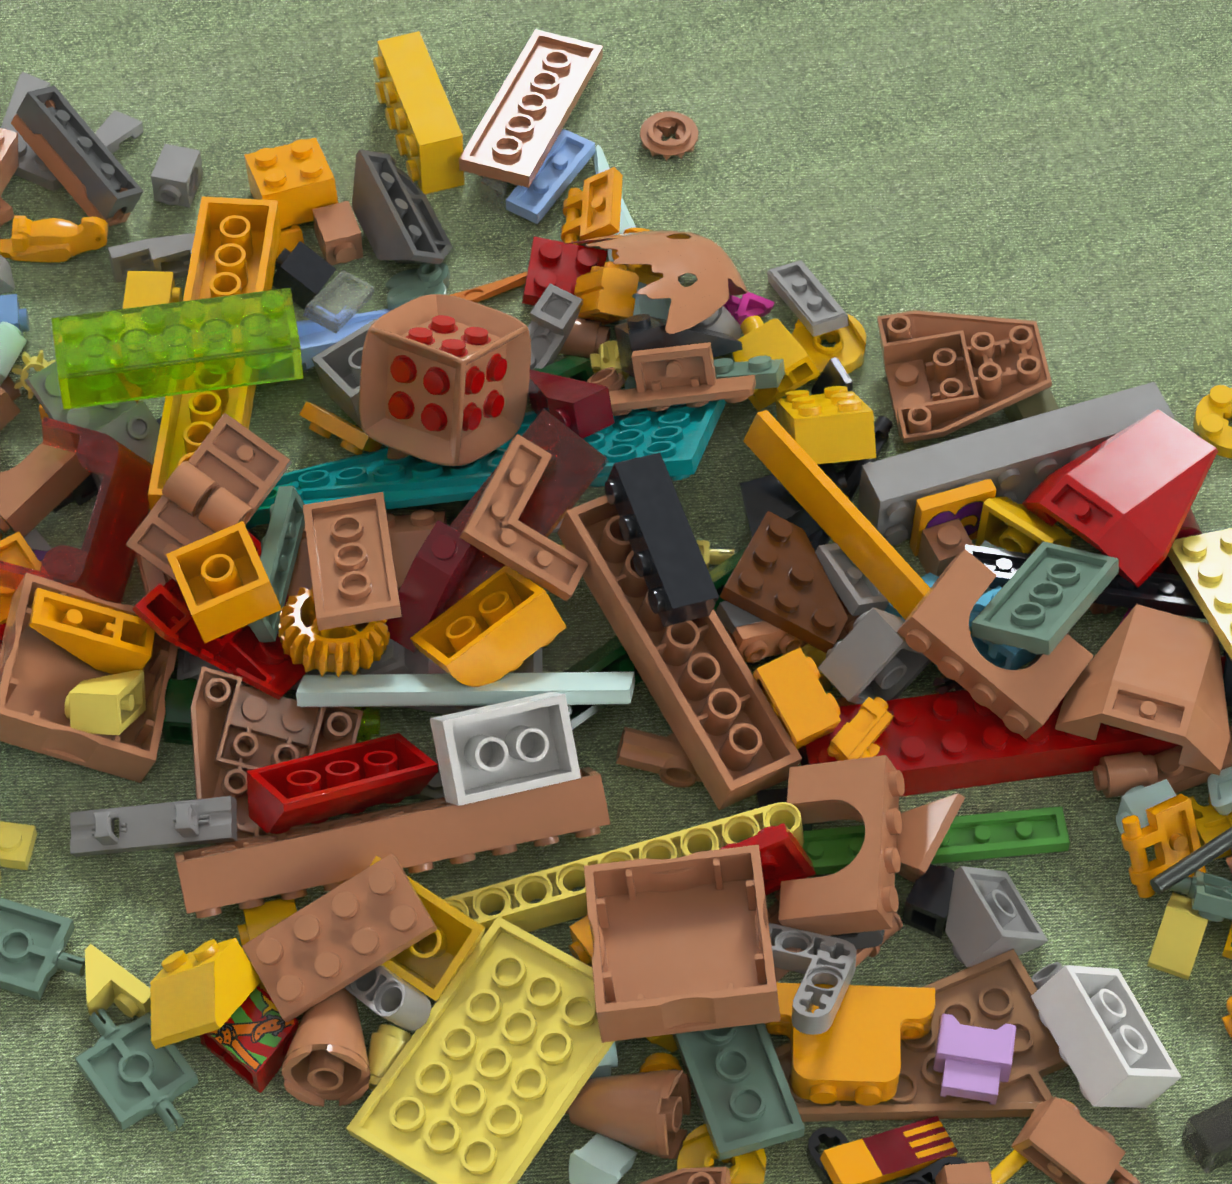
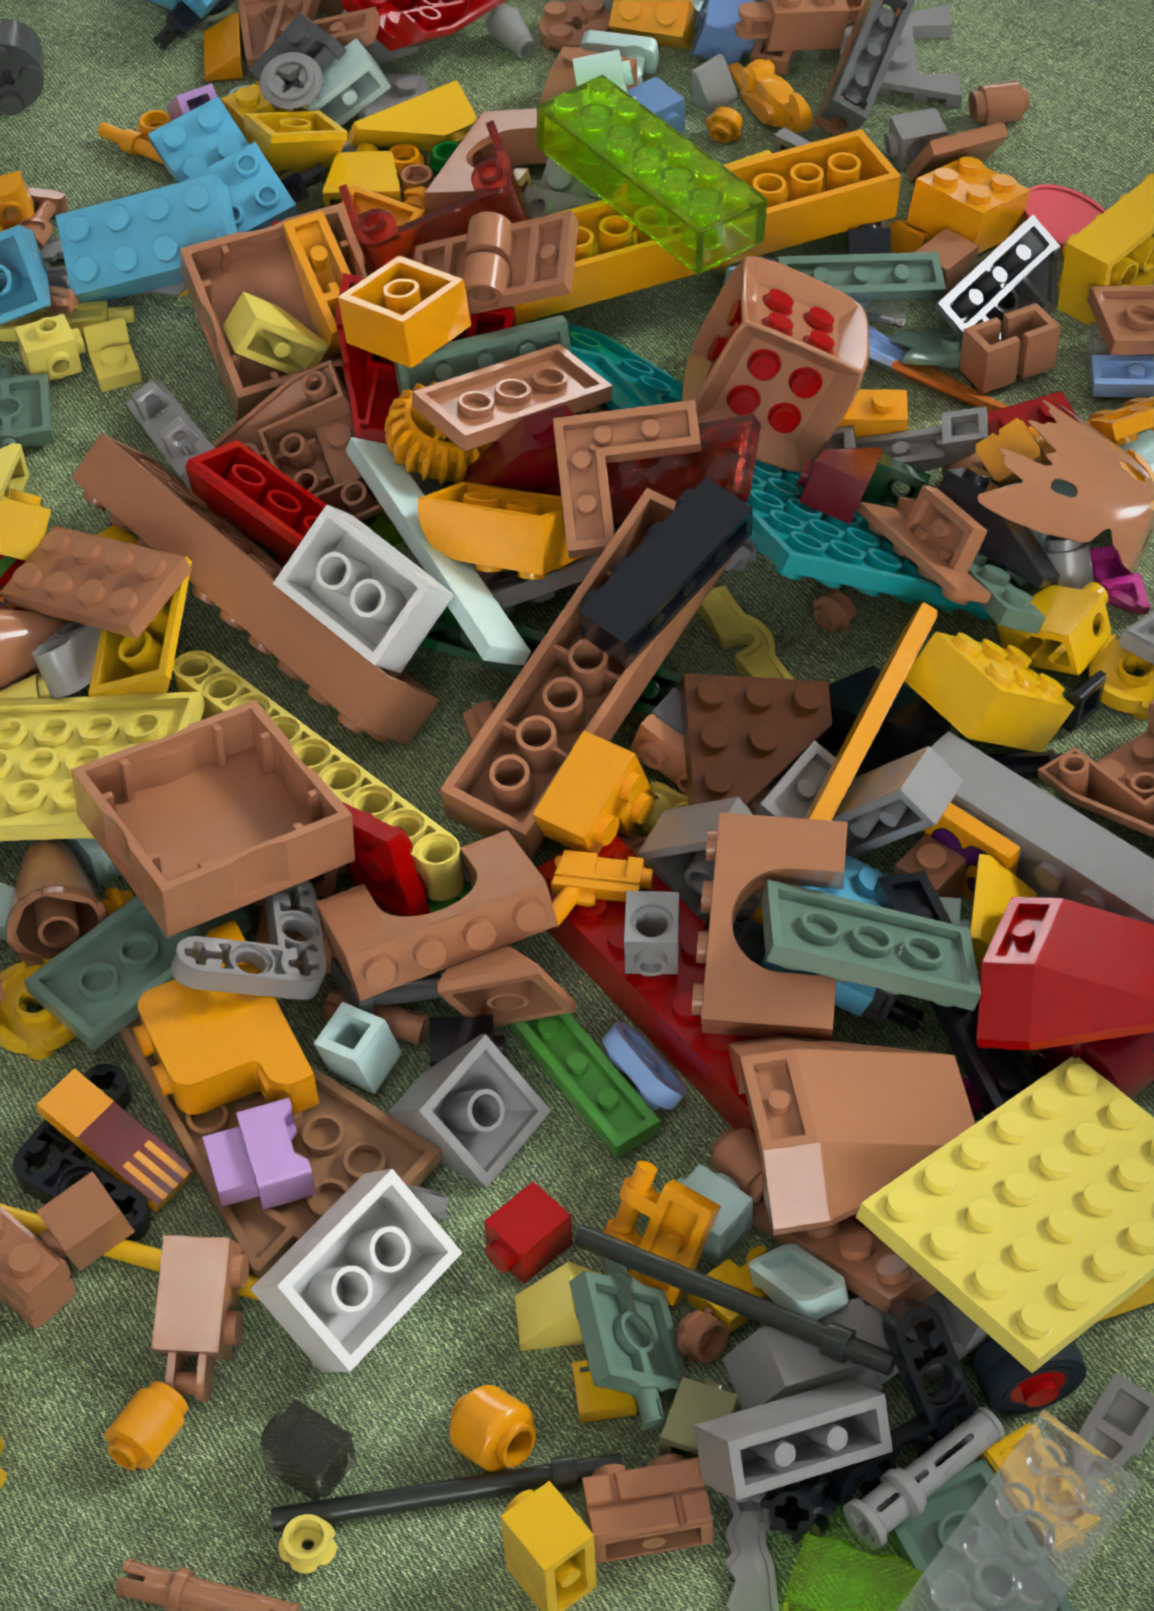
camera: 65 degrees right, 5 degrees down
(50, 286) = (724, 124): none -> light orange plate
(174, 105) = (998, 103): none -> nougat brick
(227, 156) = (972, 143): none -> nougat plate
(338, 288) = (875, 275): none -> sand green plate
(345, 132) = (1061, 210): none -> coral piece
(469, 241) = (1025, 348): none -> nougat piece
(901, 958) = (358, 1047): none -> light aqua brick
(917, 515) = (897, 800): none -> light grey brick
(936, 708) = (651, 933): none -> light grey brick
(1018, 794) = (645, 1066): none -> light blue plate
(1110, 927) = (527, 1233): none -> red brick

